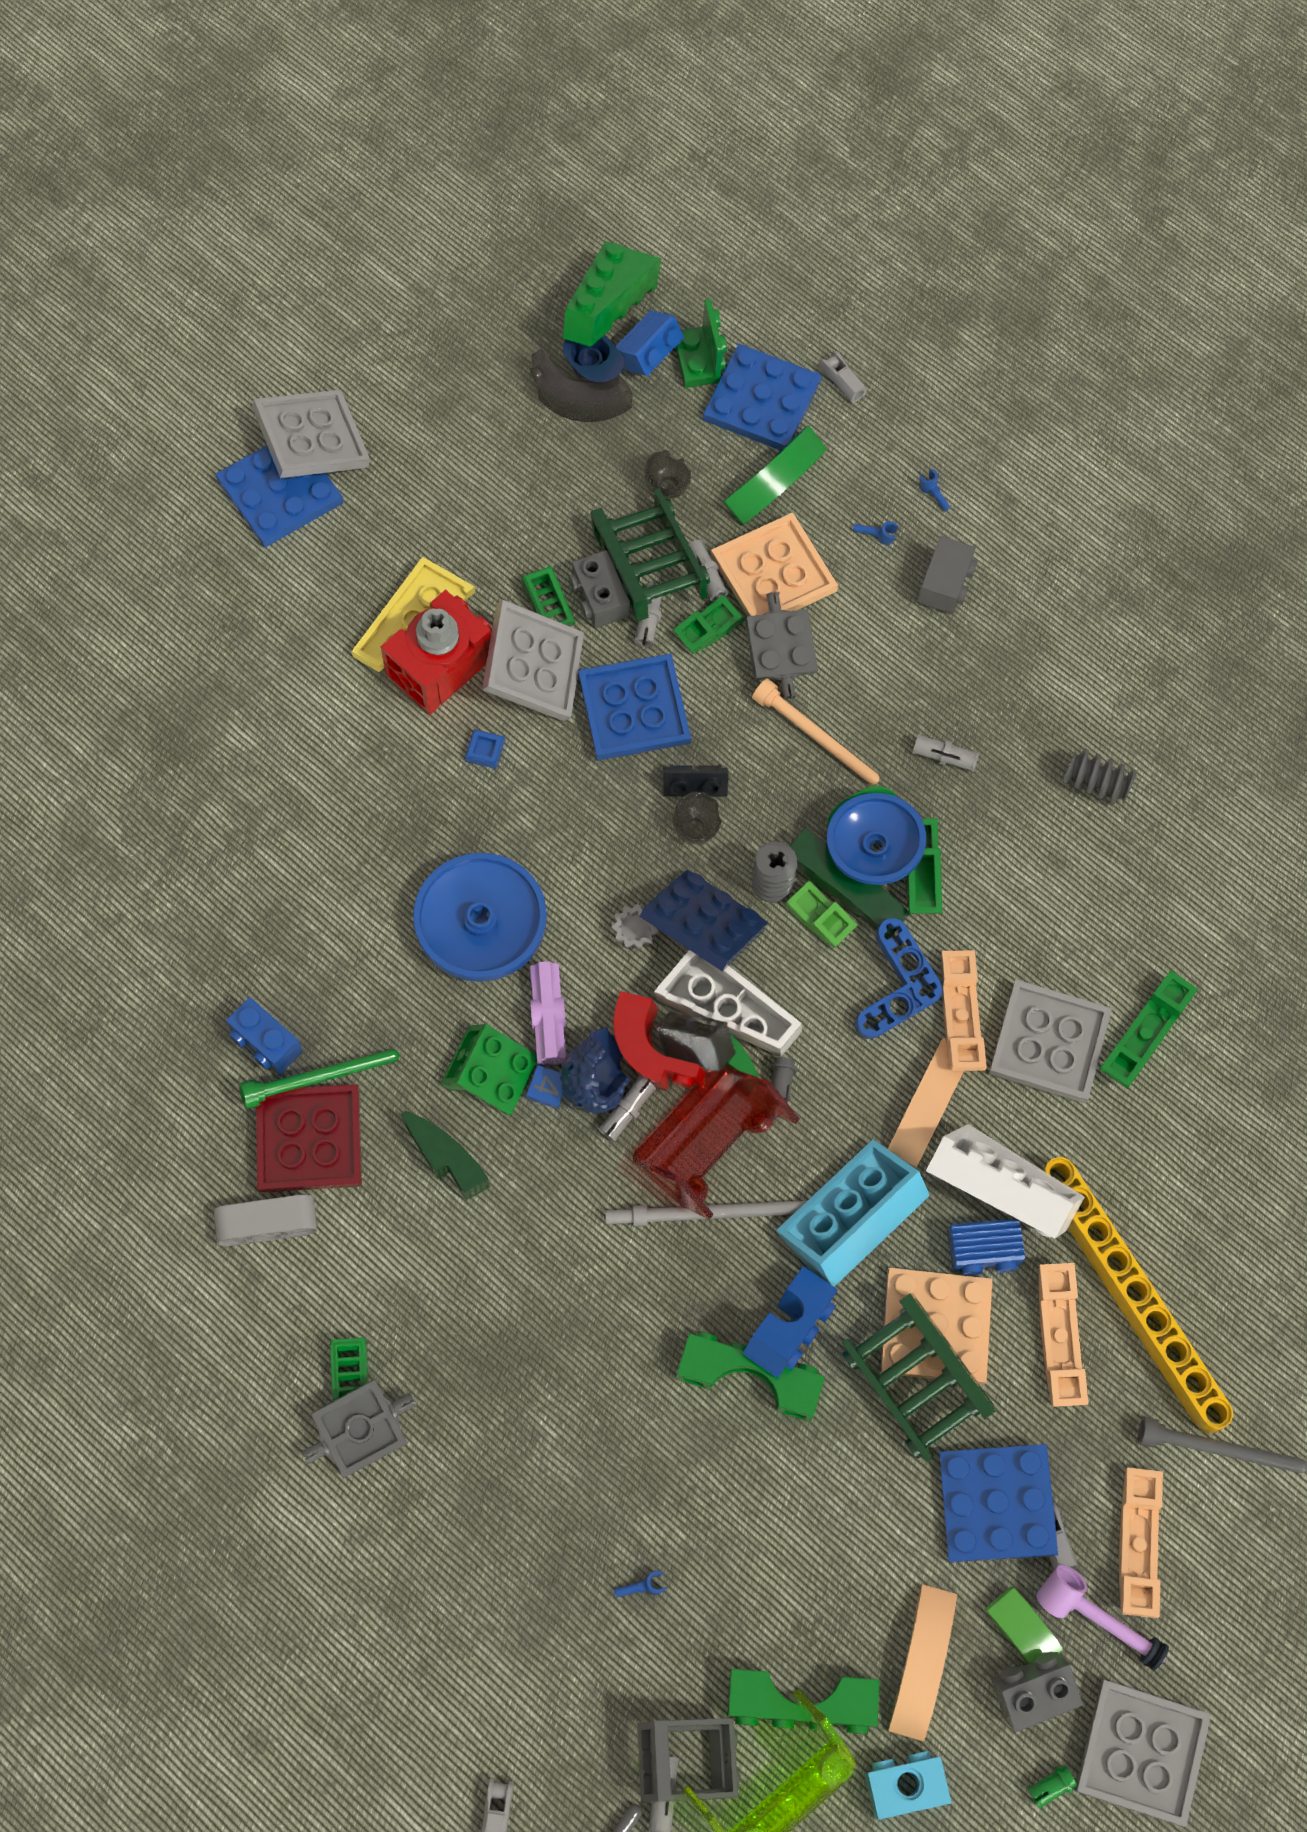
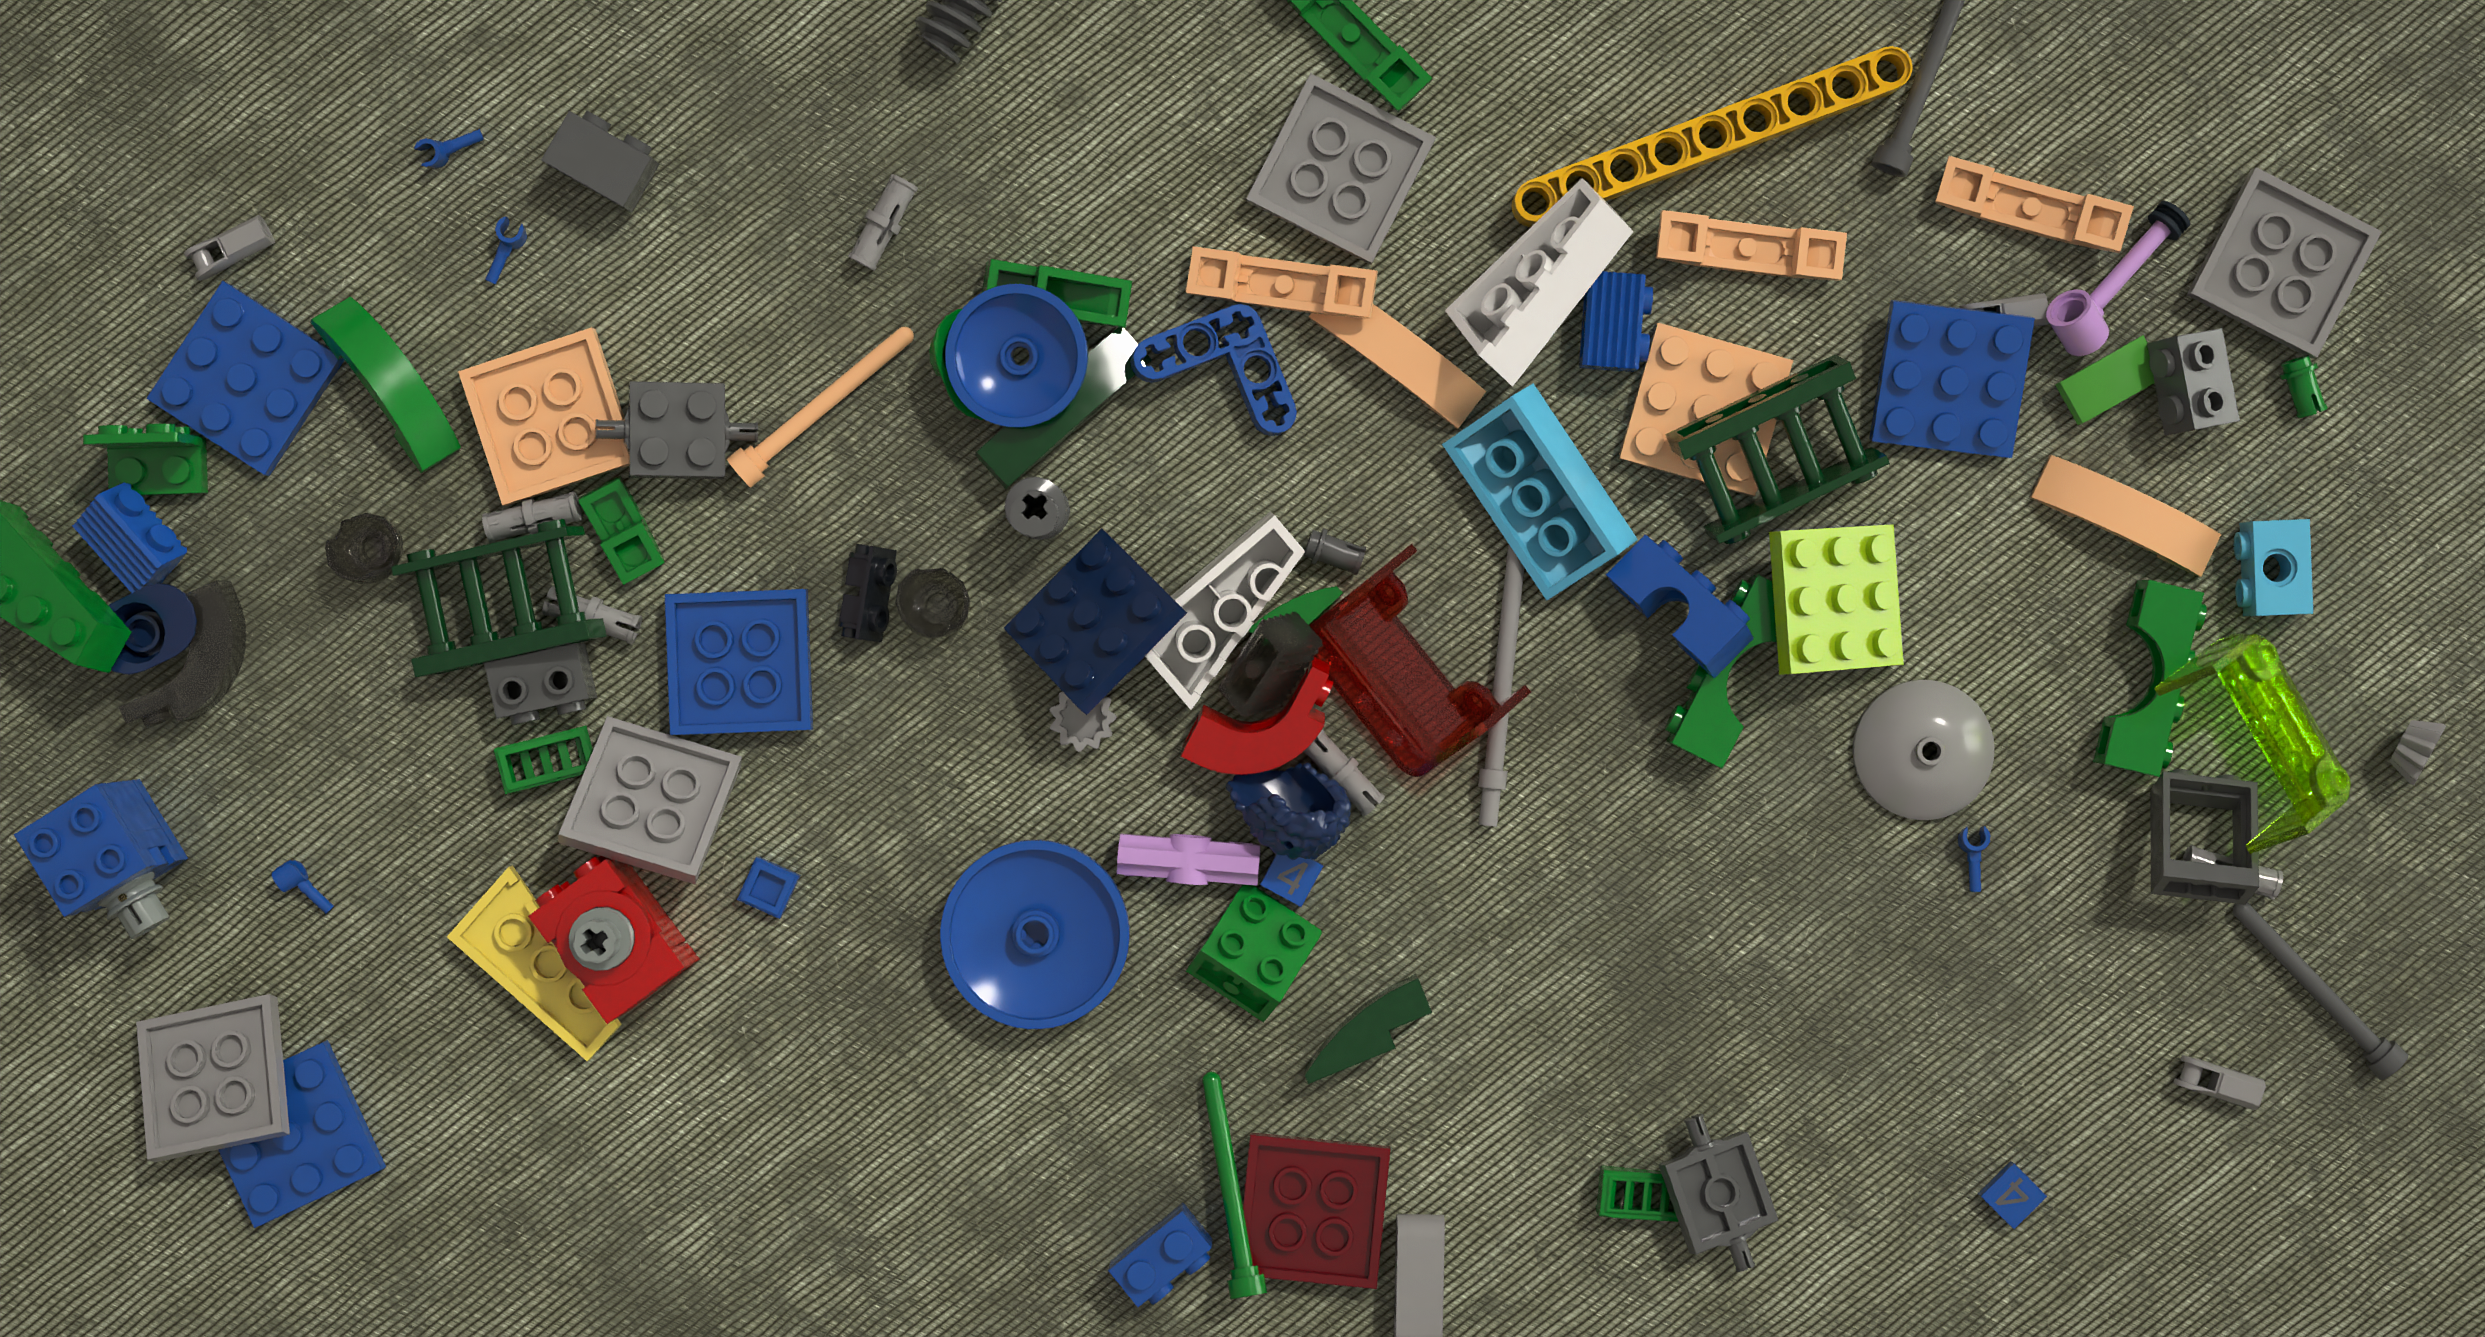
camera: 75 degrees left, 20 degrees up
(385, 1662) = (2012, 1195): none -> blue tile
(448, 349) = (105, 854): none -> blue piece
(448, 467) = (294, 874): none -> blue hand
(711, 1560) = (1891, 744): none -> light grey dish
(818, 1439) = (1836, 598): none -> plate
(820, 915) = (1101, 451): bright green slope -> none

